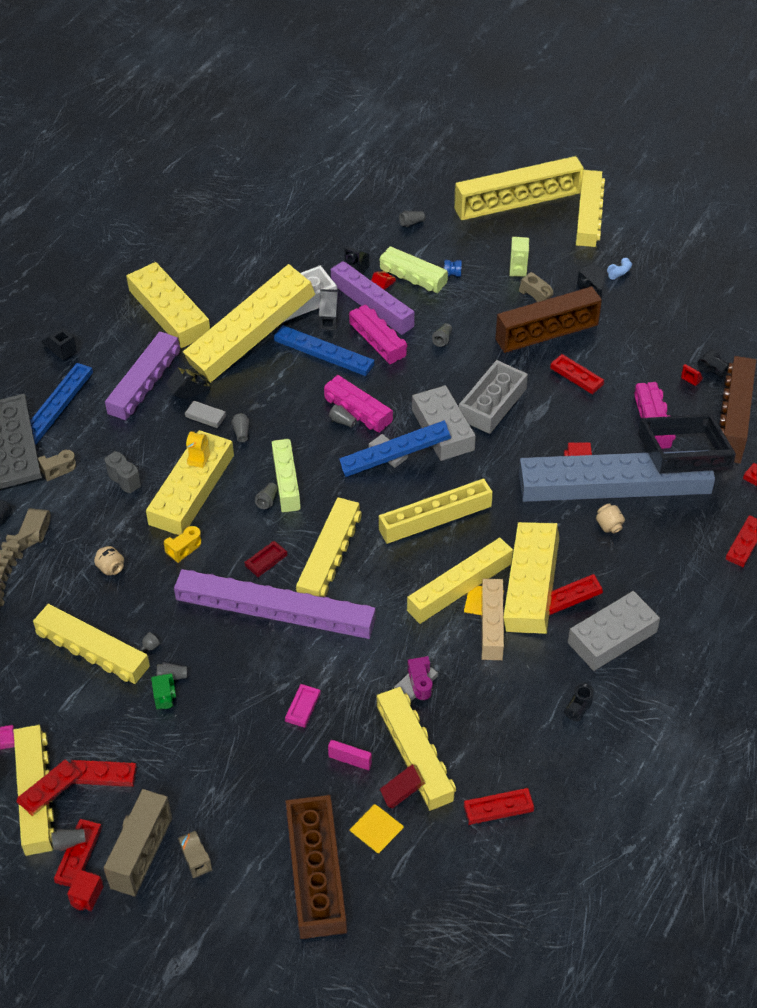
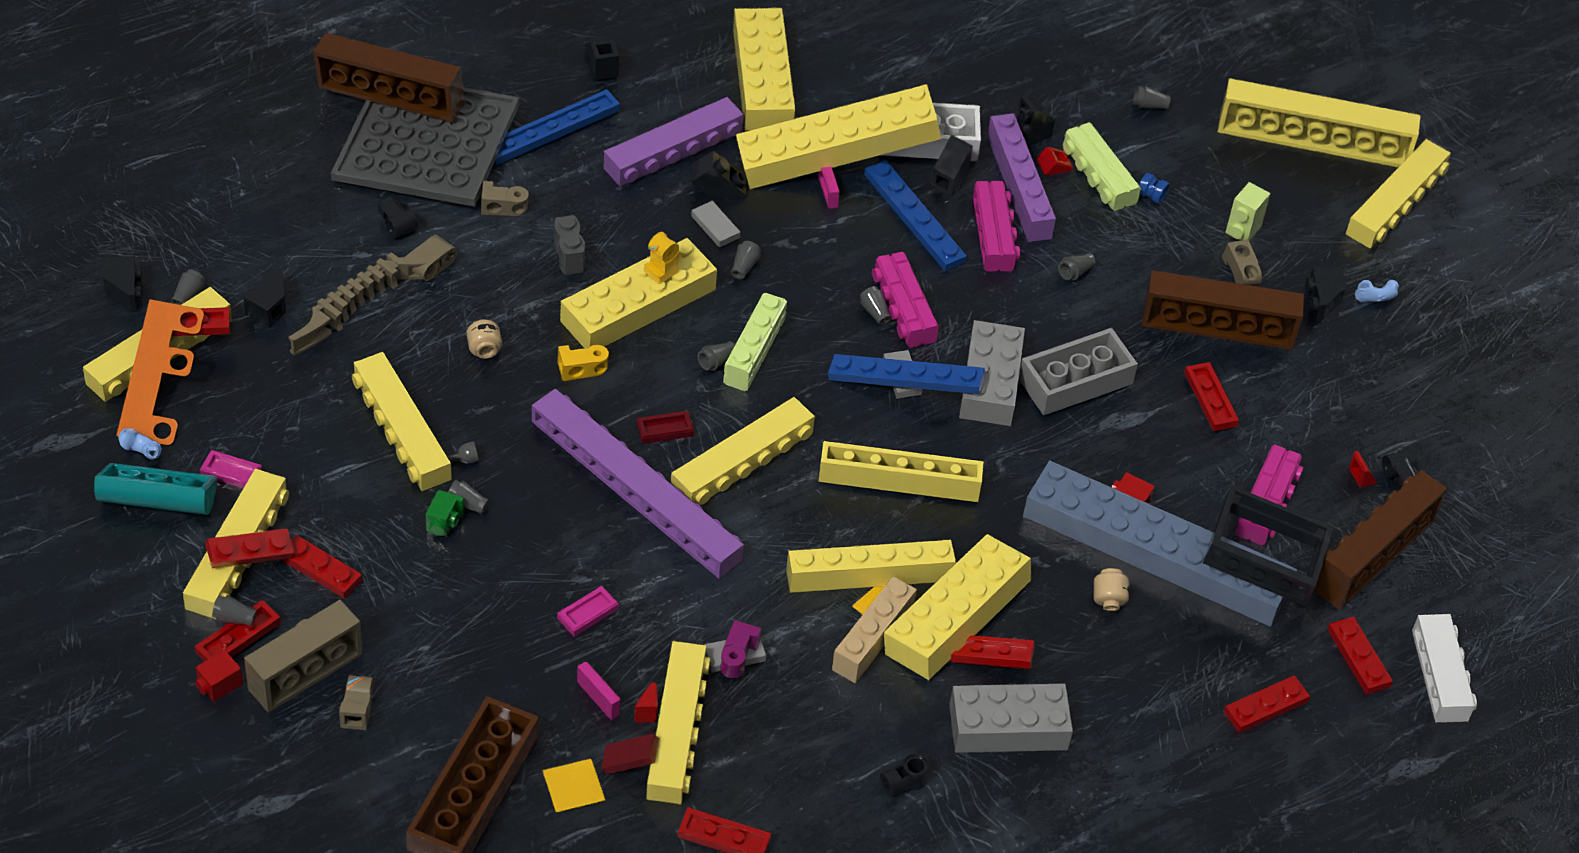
camera: 25 degrees right, 0 degrees up
(260, 357) = (829, 186): none -> dark pink tile
(390, 746) = (647, 705): none -> red slope

